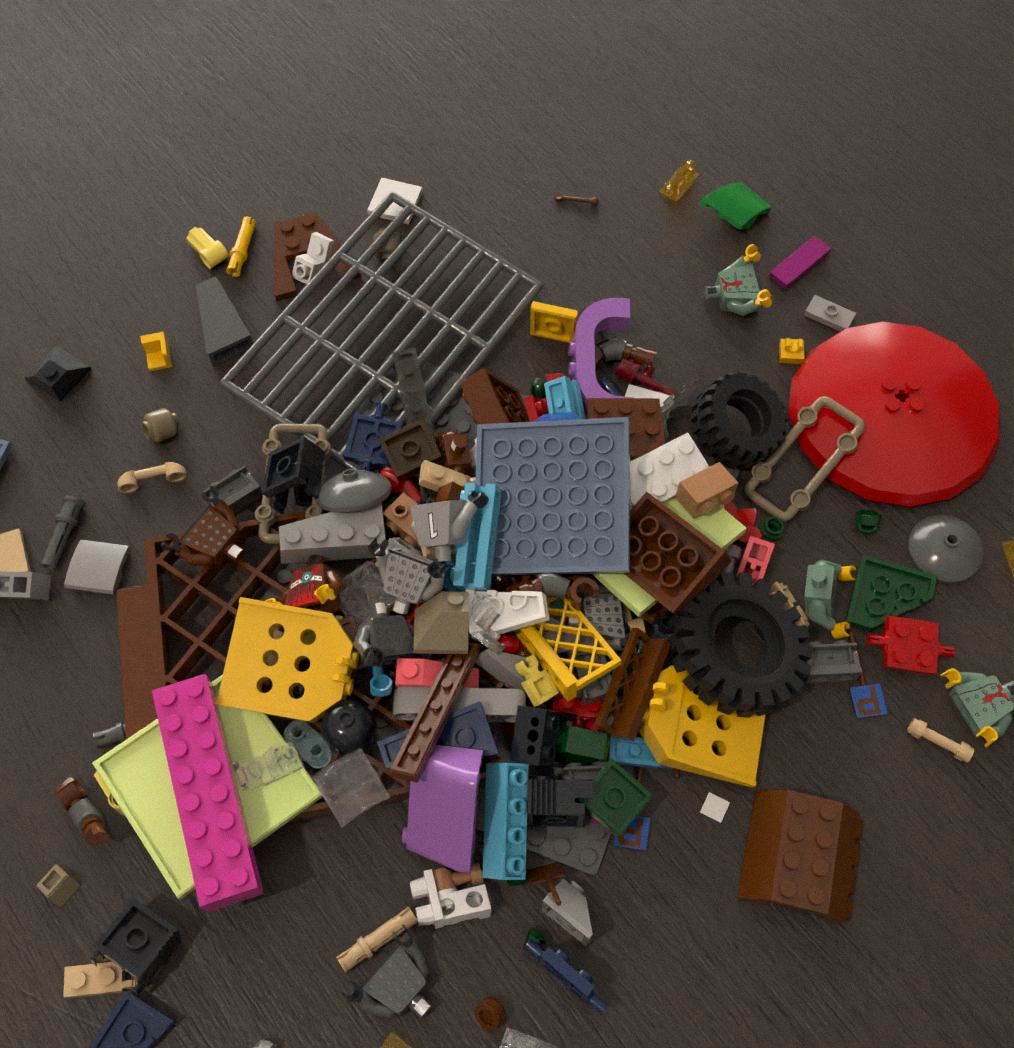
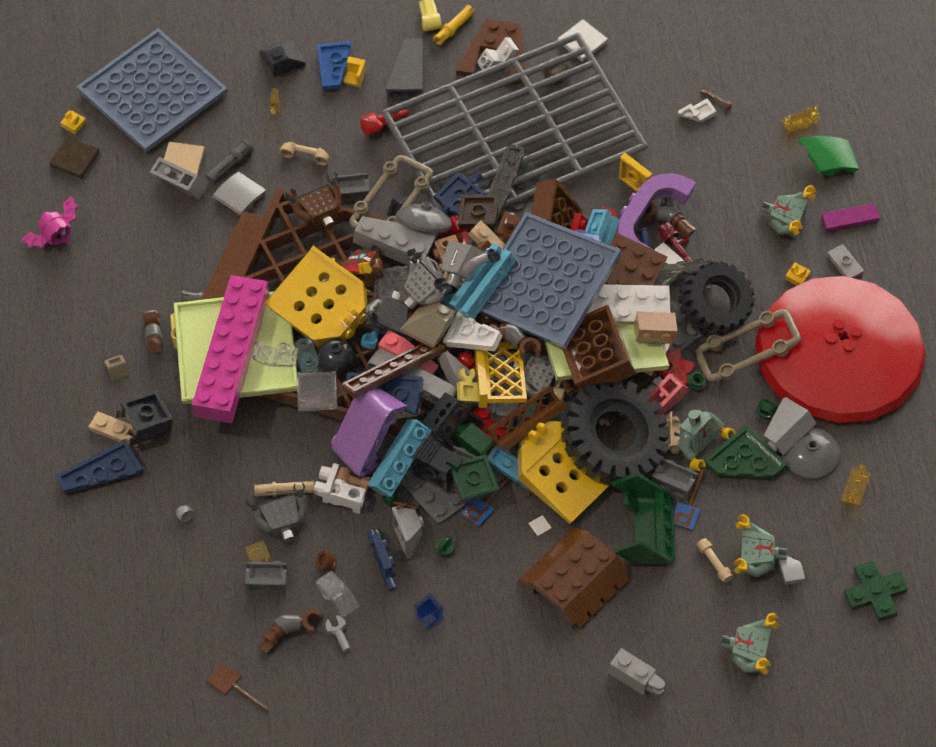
camera: 30 degrees right, 5 degrees down
(78, 430) = (274, 101): none -> clear yellow tile
(124, 353) = (333, 63): none -> blue wing
(160, 425) = (329, 122): dark tan head -> none
(216, 402) = (373, 123): none -> red animal
(290, 467) = (393, 185): black piece -> none
(481, 619) = (452, 331): clear slope -> none
(569, 222) = (699, 112): none -> white slope
(623, 903) = (445, 546): none -> dark green tile
(663, 1010) = (428, 611): none -> clear blue panel
(844, 736) = (652, 521): none -> dark green windscreen
(910, 530) = (788, 426): none -> light grey slope
(910, 645) = (736, 495): red plate -> none
(961, 947) = (636, 673): none -> light grey hinge

